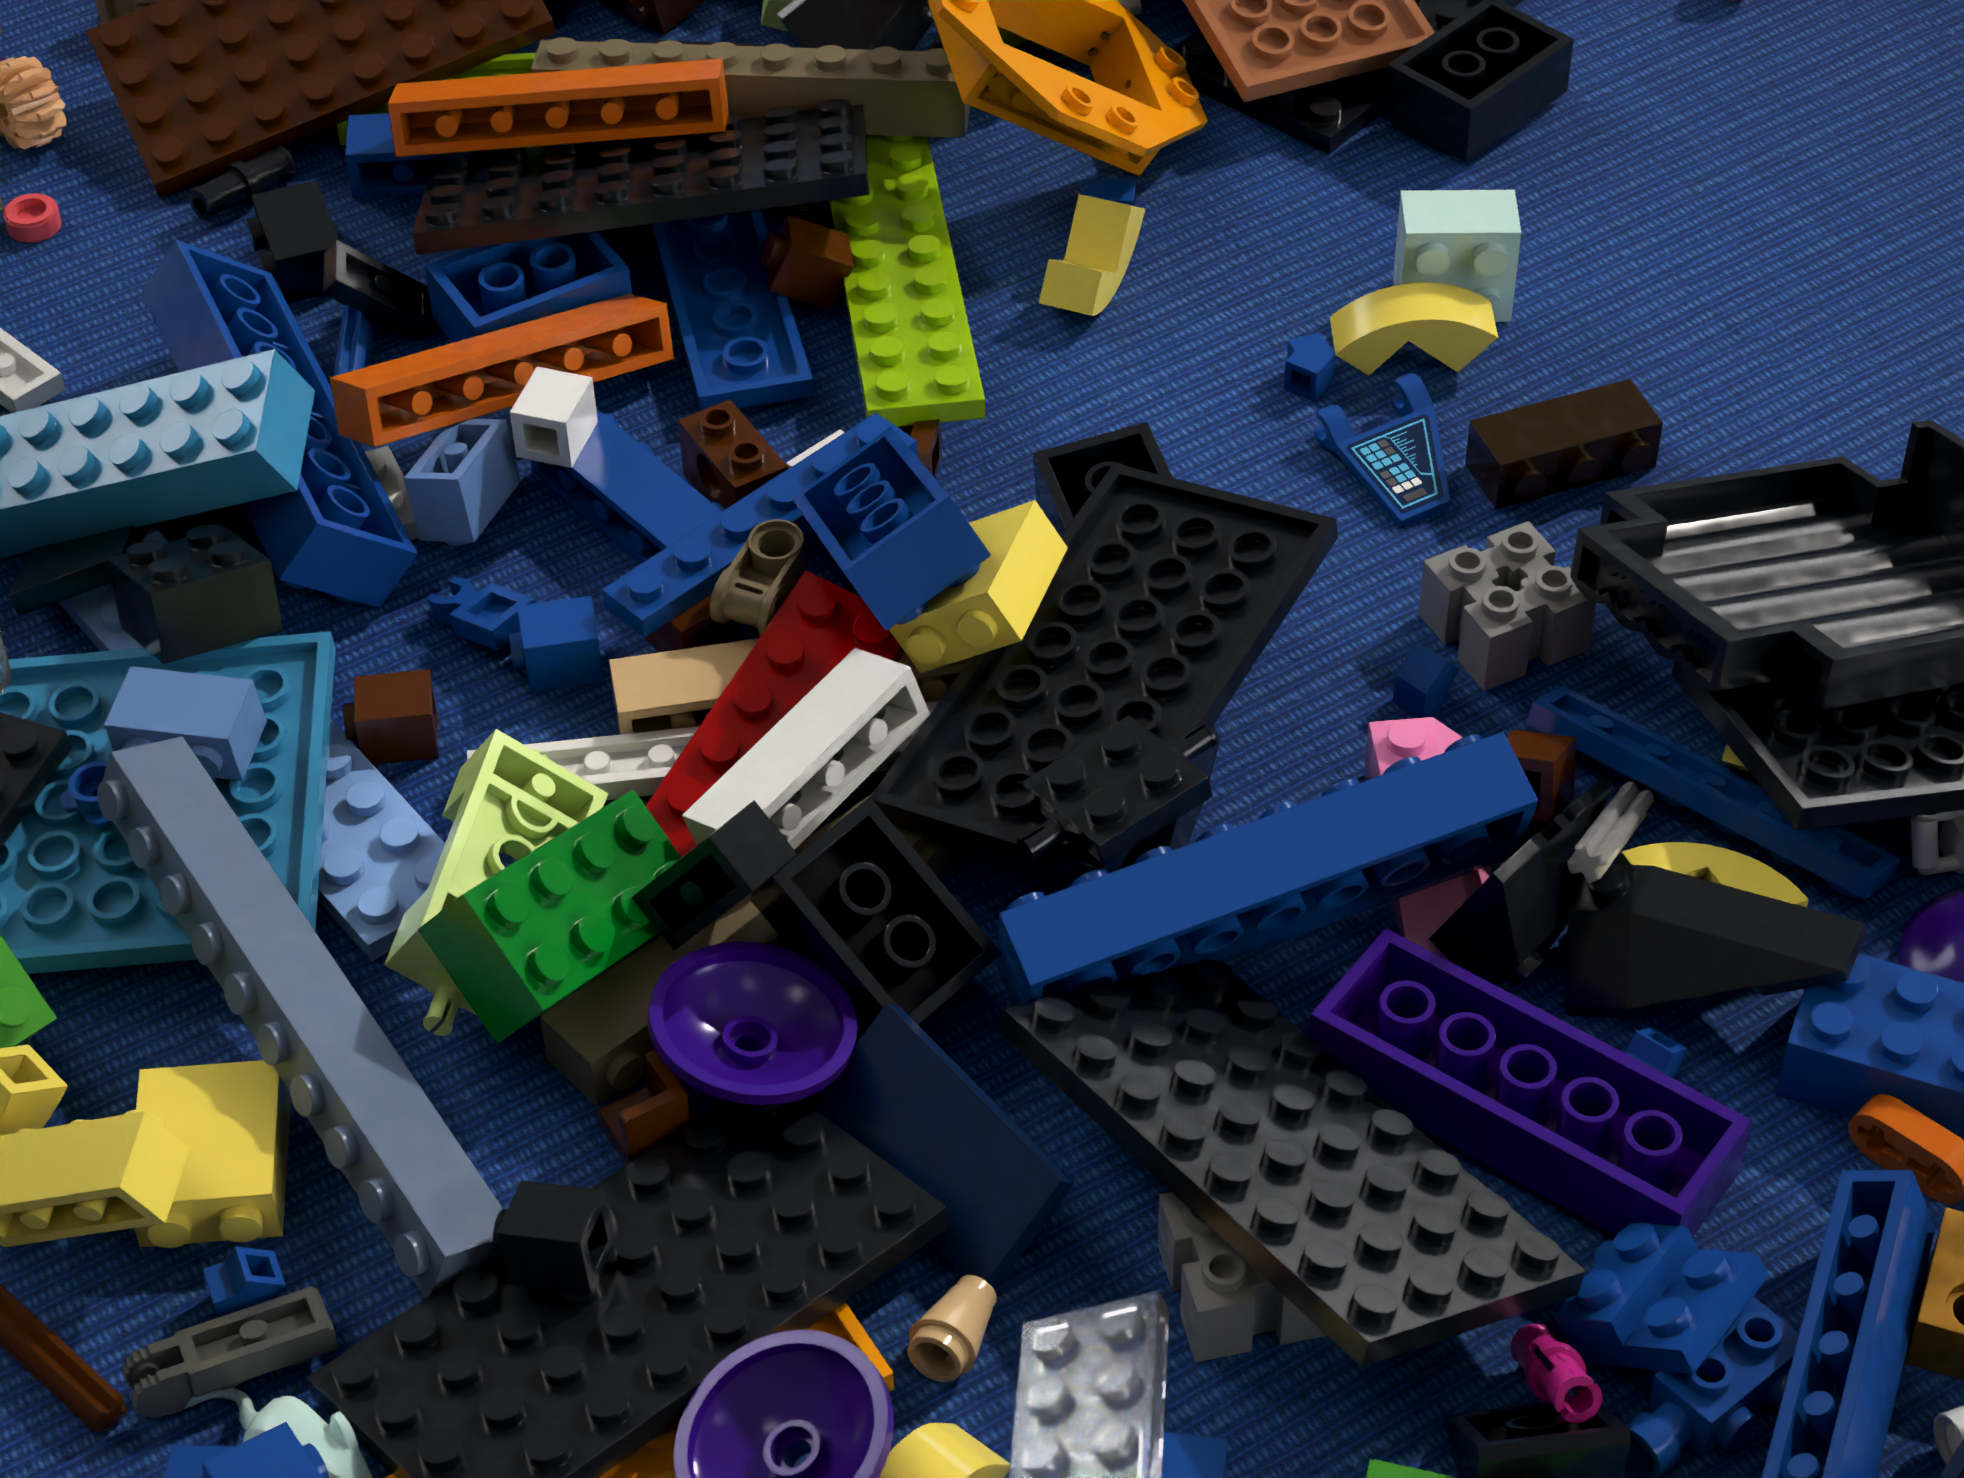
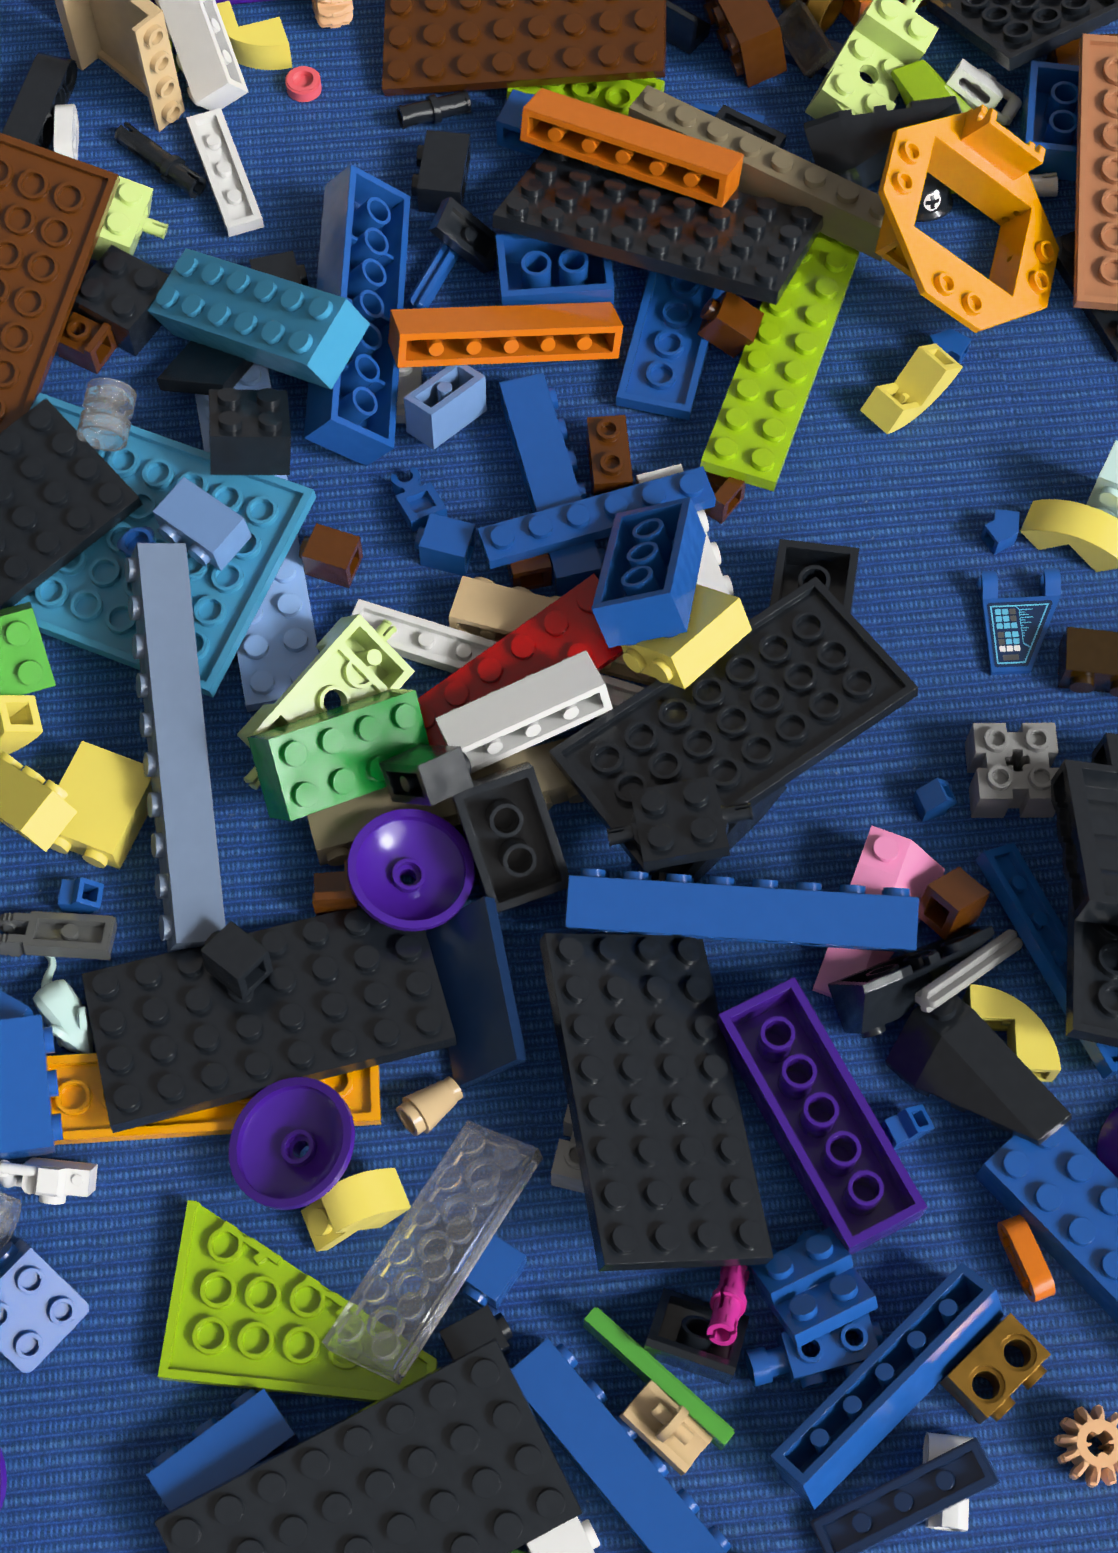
camera: 25 degrees right, 20 degrees up
(554, 417) = (512, 387): white brick -> none
(760, 575) = (565, 568): dark tan piece -> none

